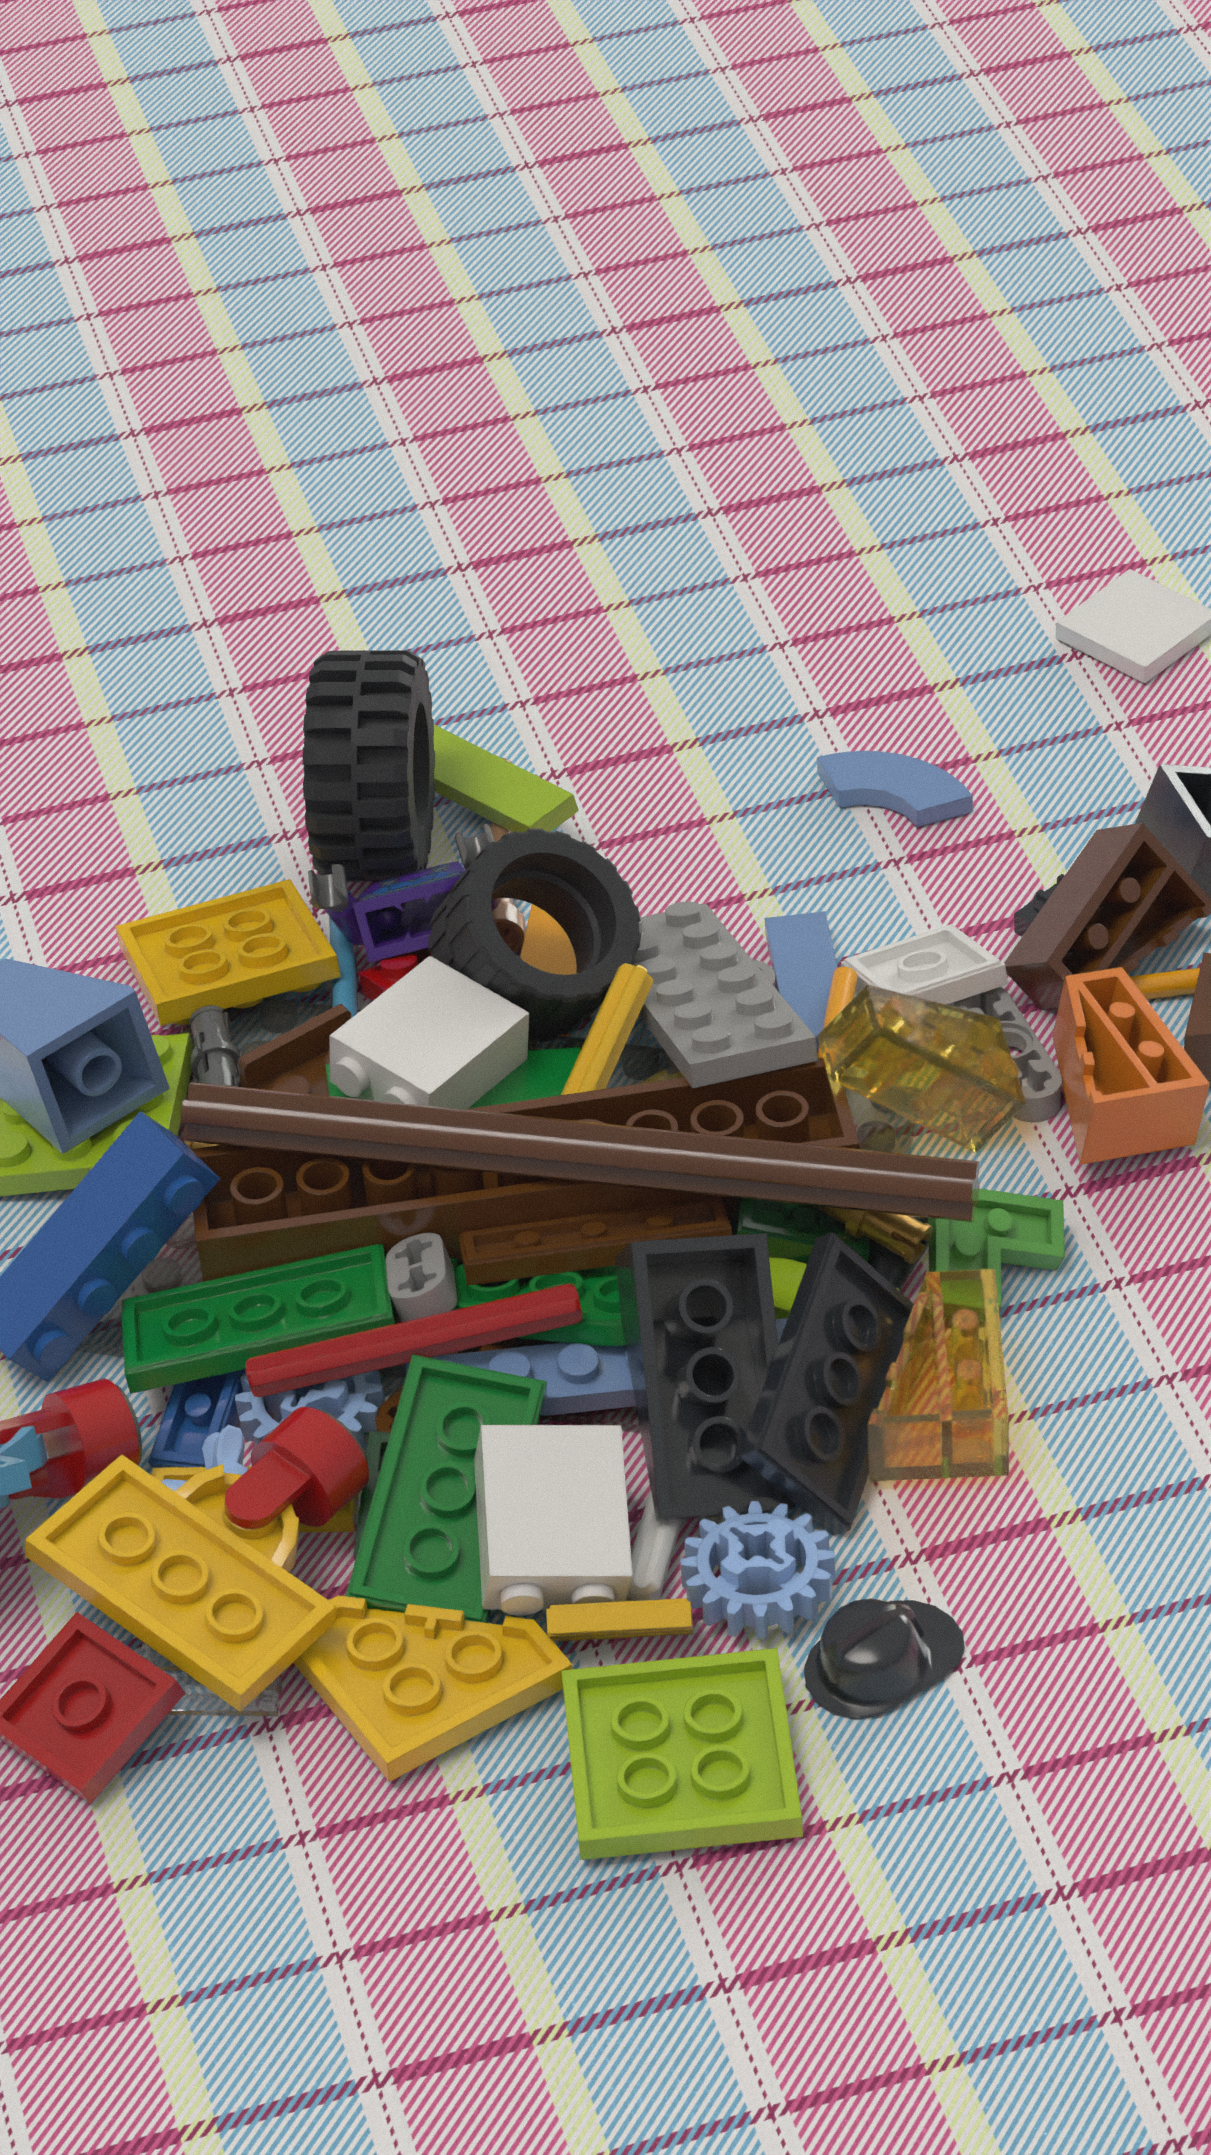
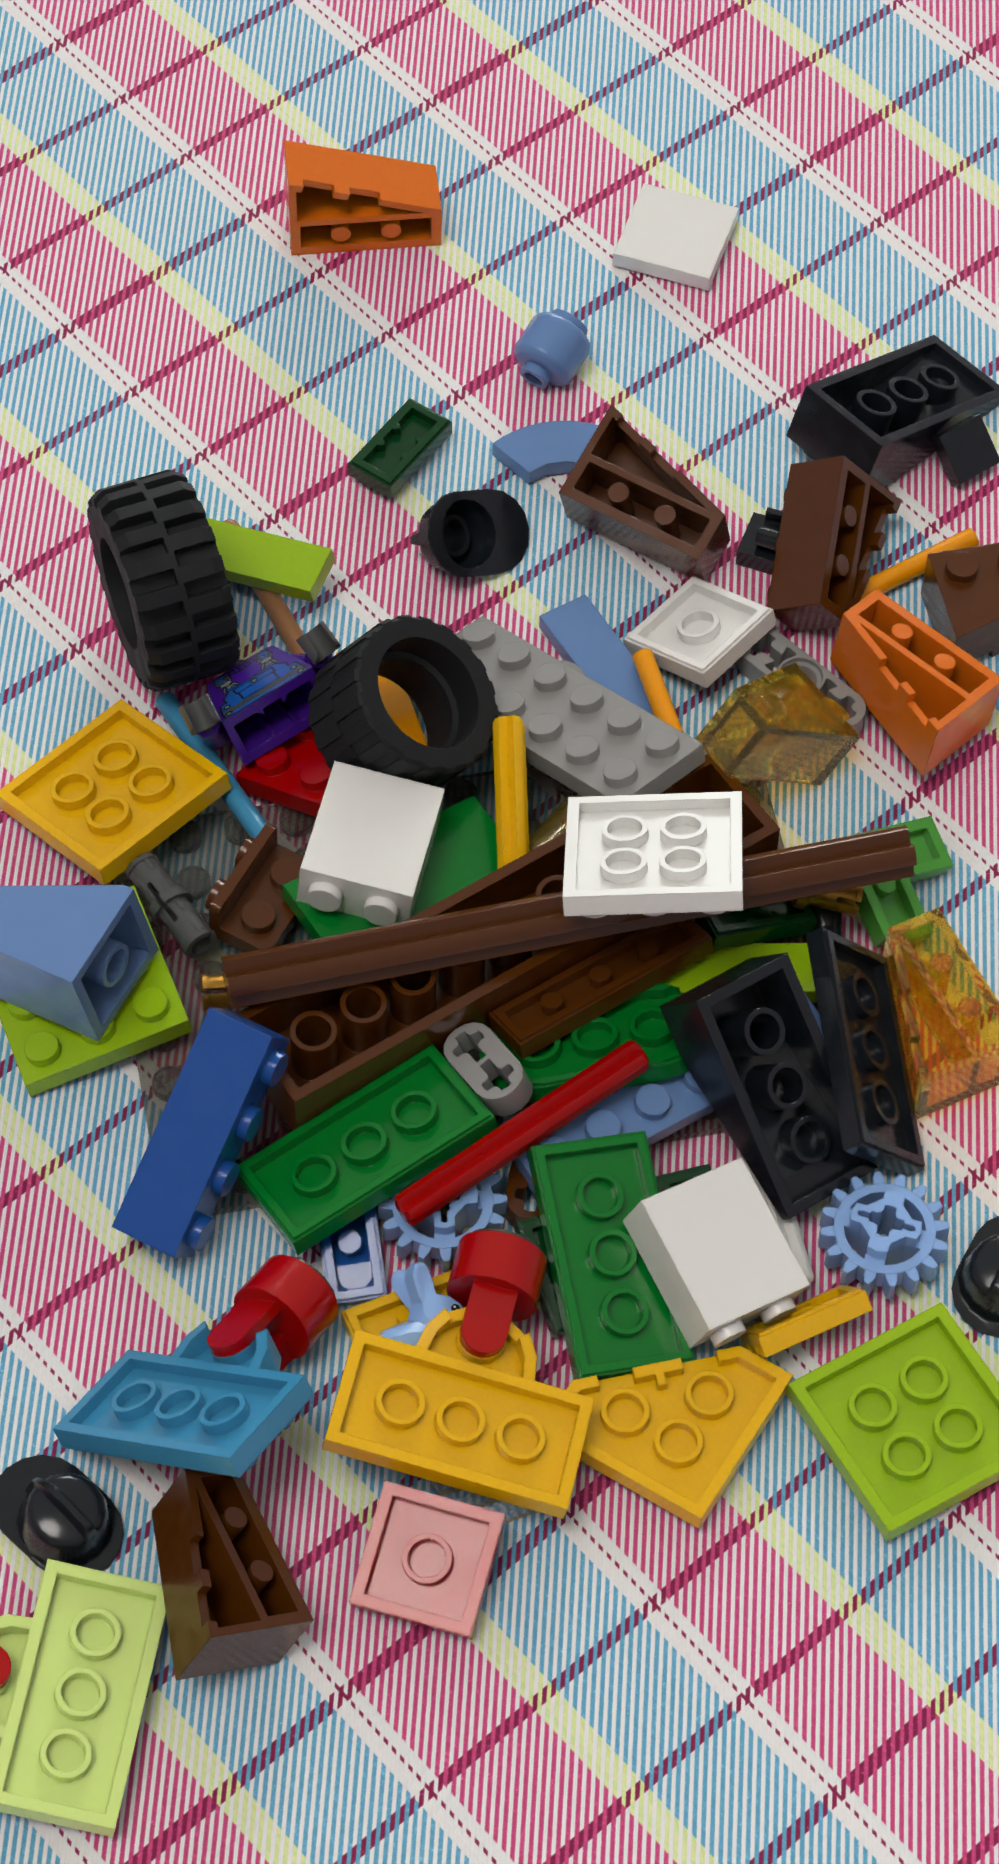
camera: 30 degrees left, 15 degrees up
(679, 1106) = (653, 854): none -> white plate
(718, 739) = (400, 448): none -> dark green plate
(740, 824) = (473, 533): none -> black piece
(807, 512) = (358, 201): none -> orange wedge
(926, 835) = (642, 501): none -> reddish brown wedge
(931, 688) = (552, 349): none -> medium blue head

